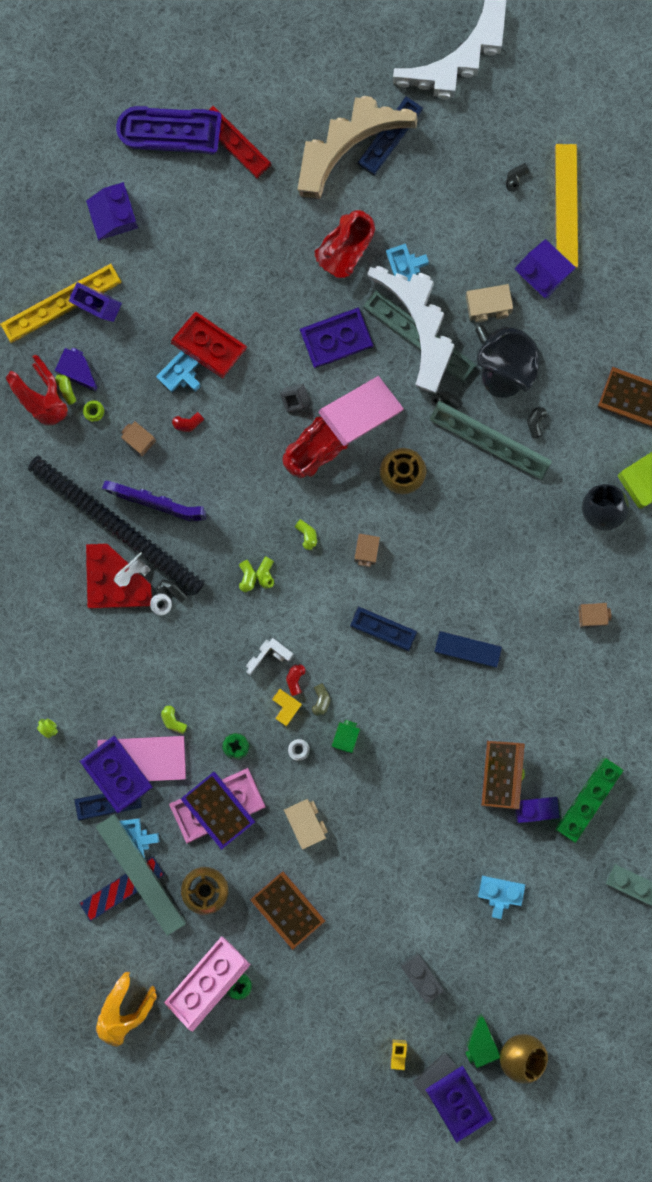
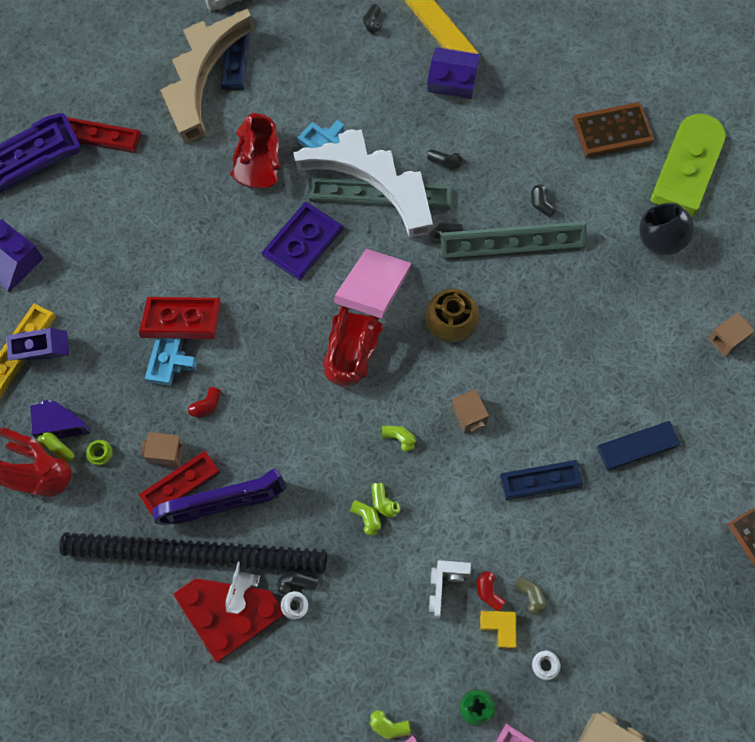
camera: 35 degrees left, 15 degrees down
(135, 470) = (180, 481): none -> red plate
(295, 397) = (299, 316): dark grey slope -> none
(346, 736) = (587, 616): green slope -> none
(489, 303) = (424, 127): tan brick -> none
(508, 362) = (480, 163): black piece -> none

